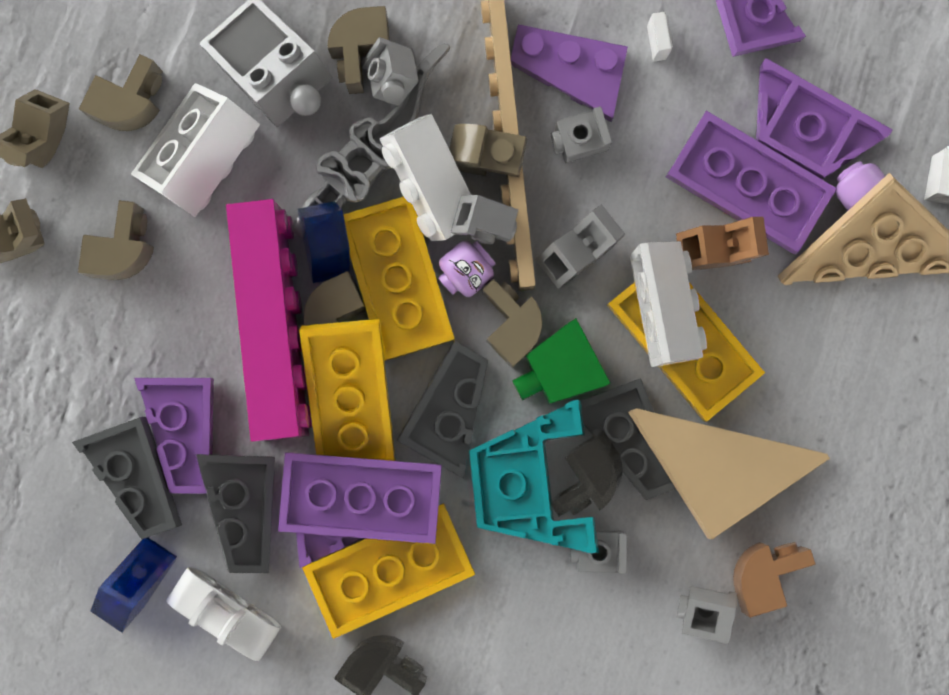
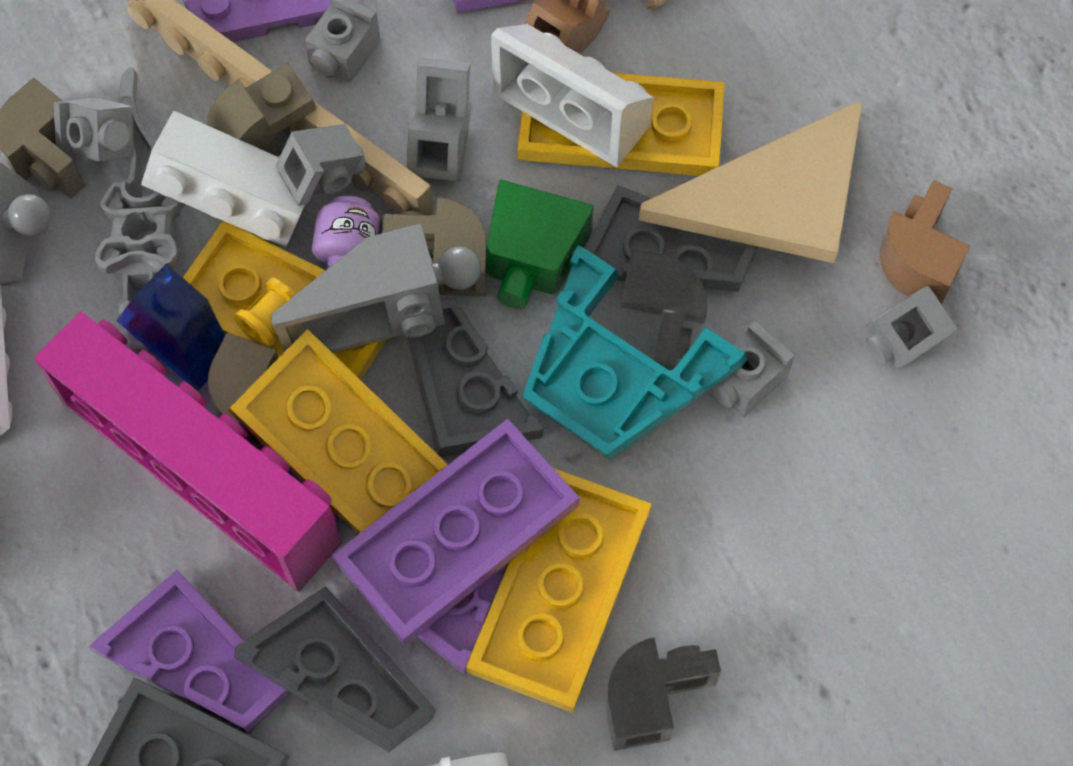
camera: 45 degrees left, 20 degrees down
(378, 282) = (256, 319): none -> yellow bush
(443, 335) = (377, 292): none -> light grey slope

